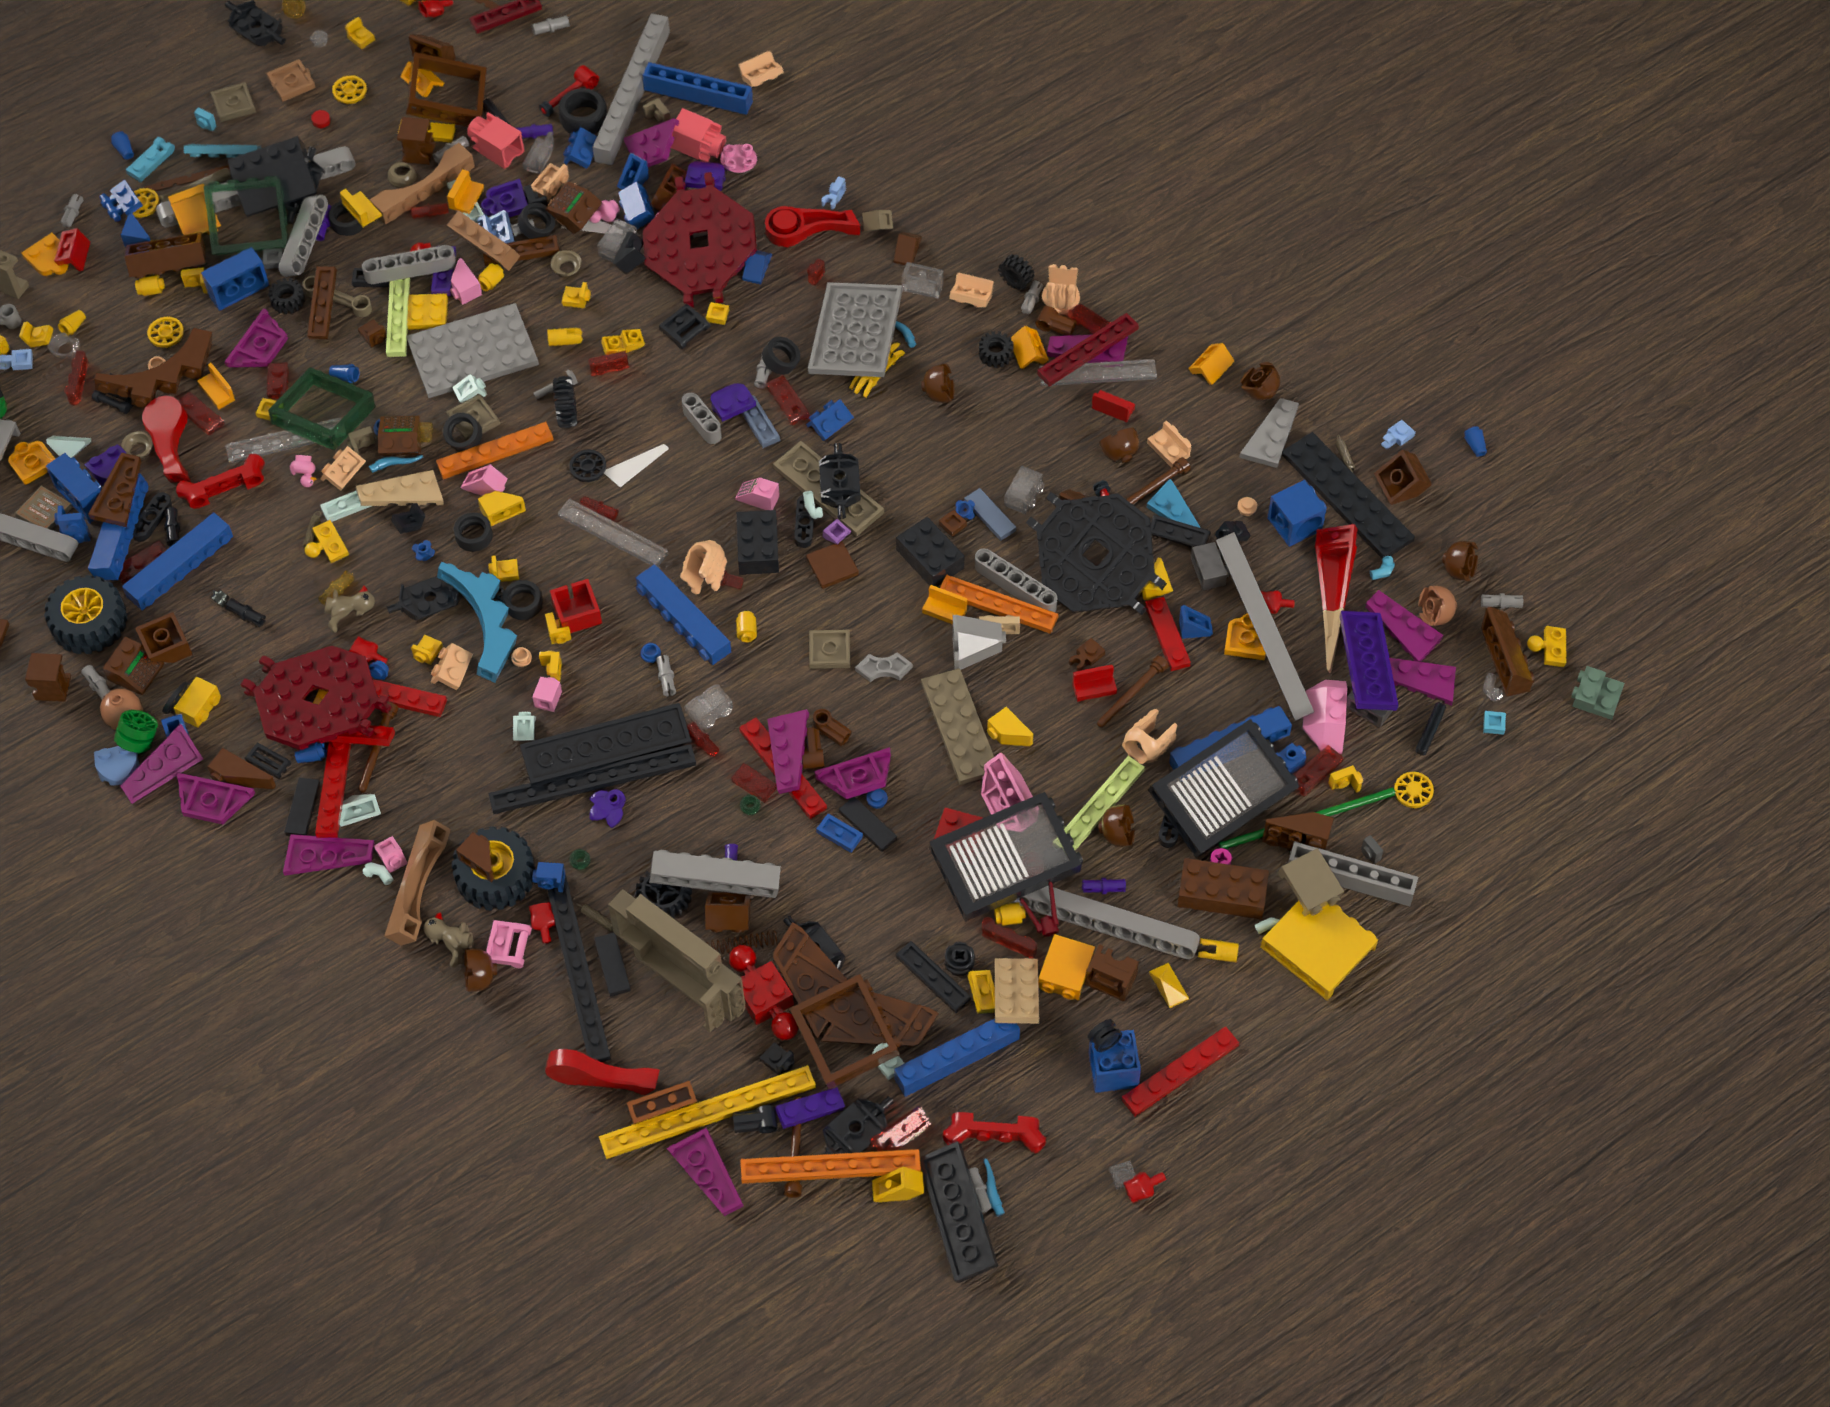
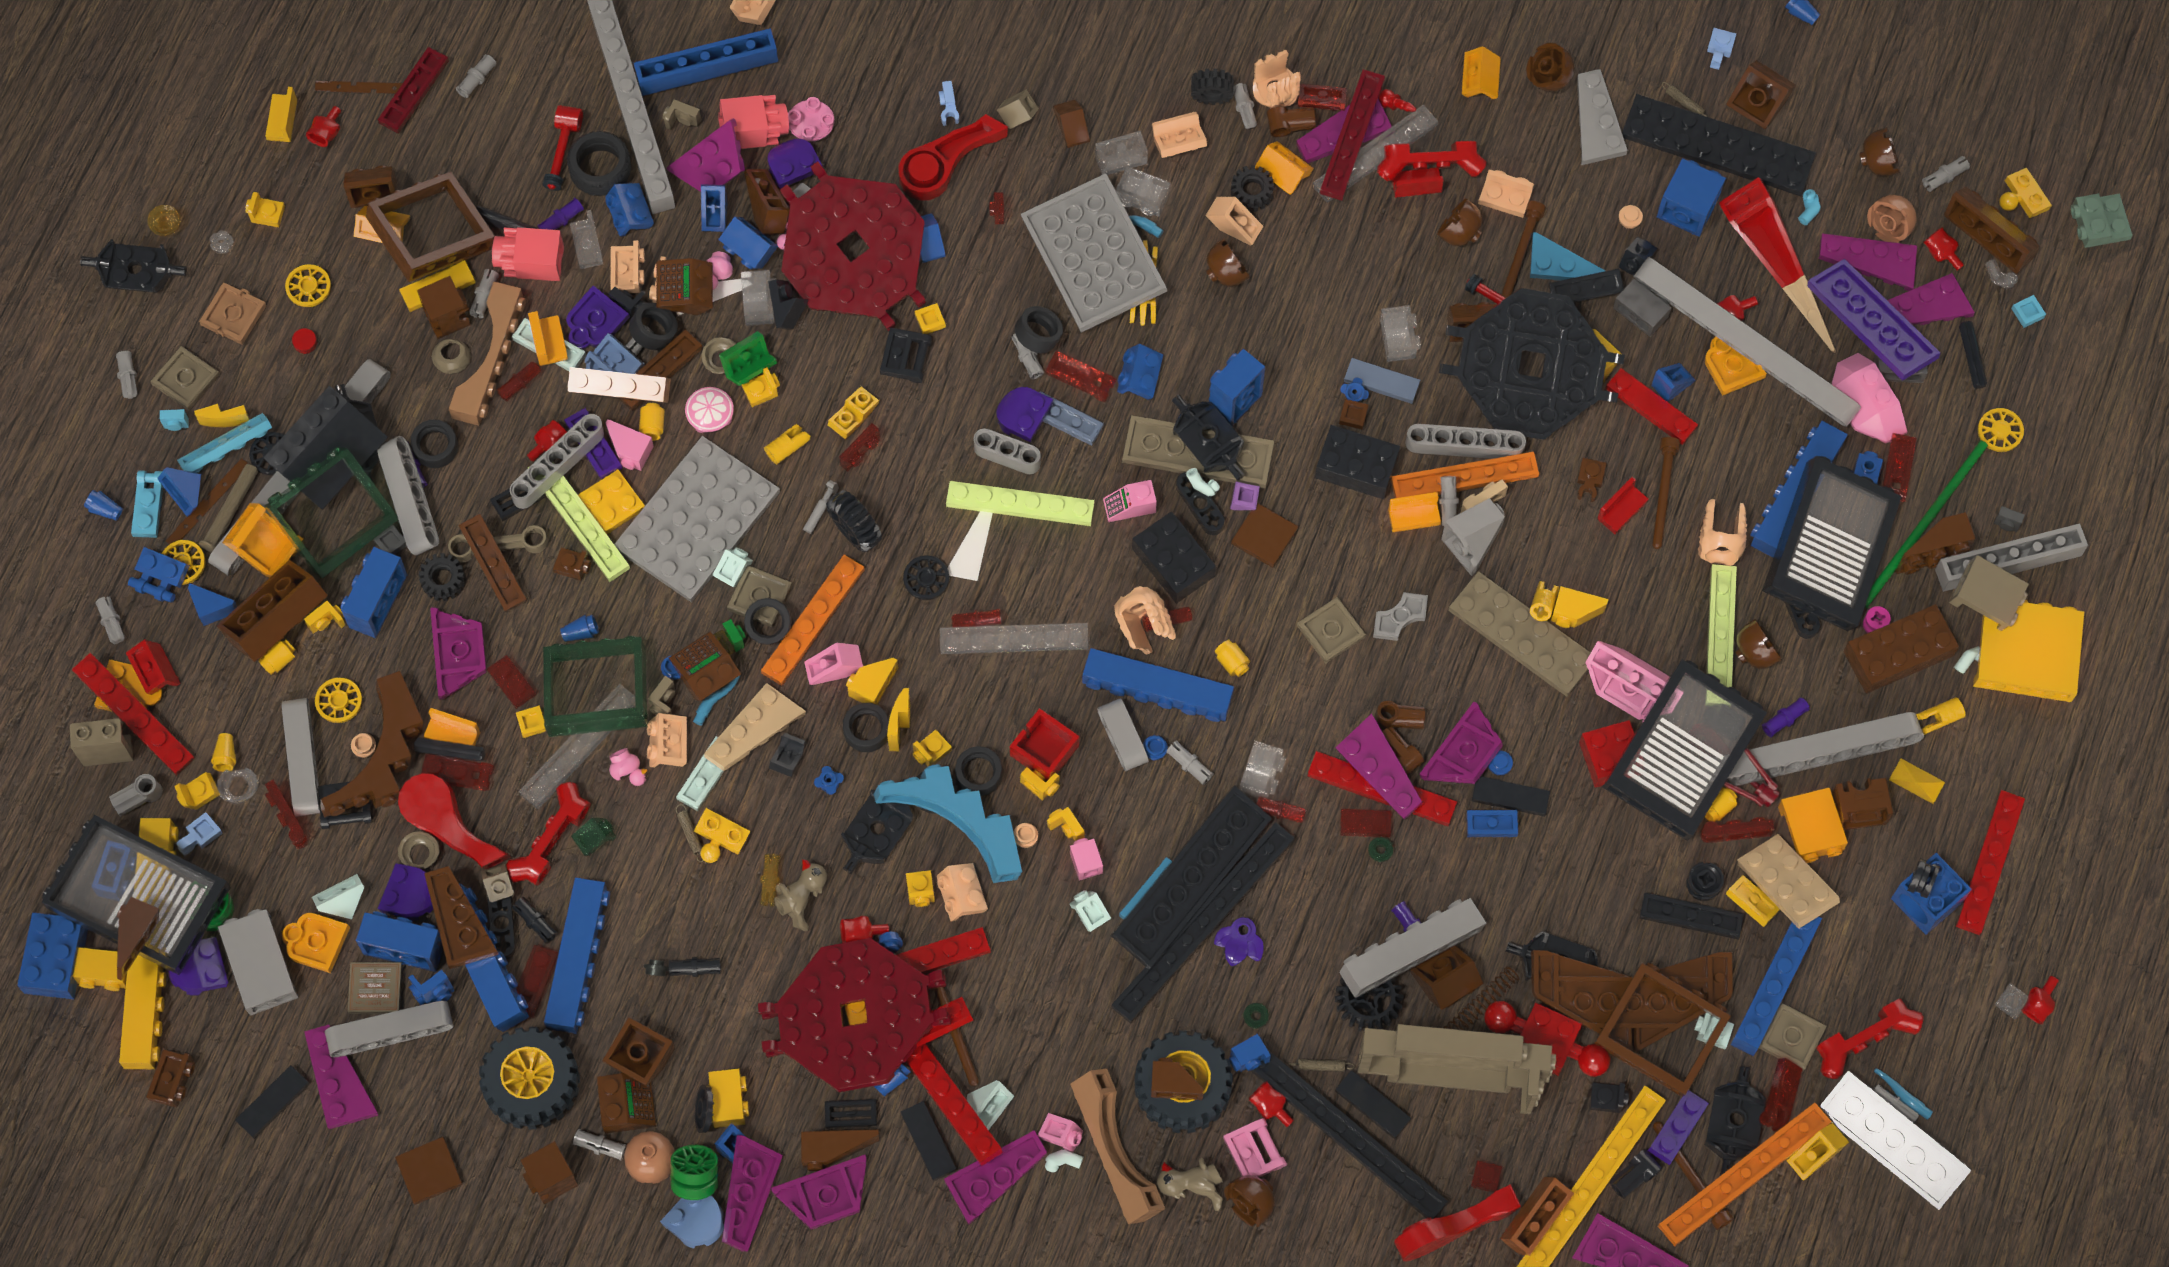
camera: 35 degrees left, 10 degrees up
(37, 269) = (133, 714): none -> red plate
(115, 347) = (301, 757): none -> light grey beam
(164, 490) = (497, 883): none -> dark tan bracket
(176, 158) = (182, 487): none -> blue slope
(200, 81) = (126, 374): none -> light grey axle
(205, 396) = (449, 749): none -> black axle
(230, 132) = (213, 417): none -> yellow slope
(250, 496) = (593, 835): none -> clear green bracket
(360, 207) = (447, 425): yellow panel -> none
(435, 429) = (734, 634): none -> green plate
(493, 535) = (899, 719): none -> yellow slope
(533, 291) = (709, 409): none -> dish
(578, 270) = (746, 359): none -> green bracket
(634, 631) = (1122, 734): none -> light grey beam
(651, 1057) = (1486, 1176): none -> clear red plate
(686, 455) = (1020, 503): none -> yellowish green plate
(879, 457) = (1237, 386): none -> blue brick
(919, 312) = (1143, 191): none -> clear brick
(941, 1099) = (1792, 1036): none -> dark tan tile
(968, 361) = (1234, 219): none -> light nougat slope
(976, 604) = (1448, 498): none -> light grey pin
(983, 712) = (1543, 602): none -> yellow hinge
(1109, 380) = (1462, 153): none -> red plate
(1136, 347) = (1393, 101): none -> red bar
(1343, 777) = (1936, 454): yellow bracket -> none
(1461, 646) = (1943, 248): none -> red piece

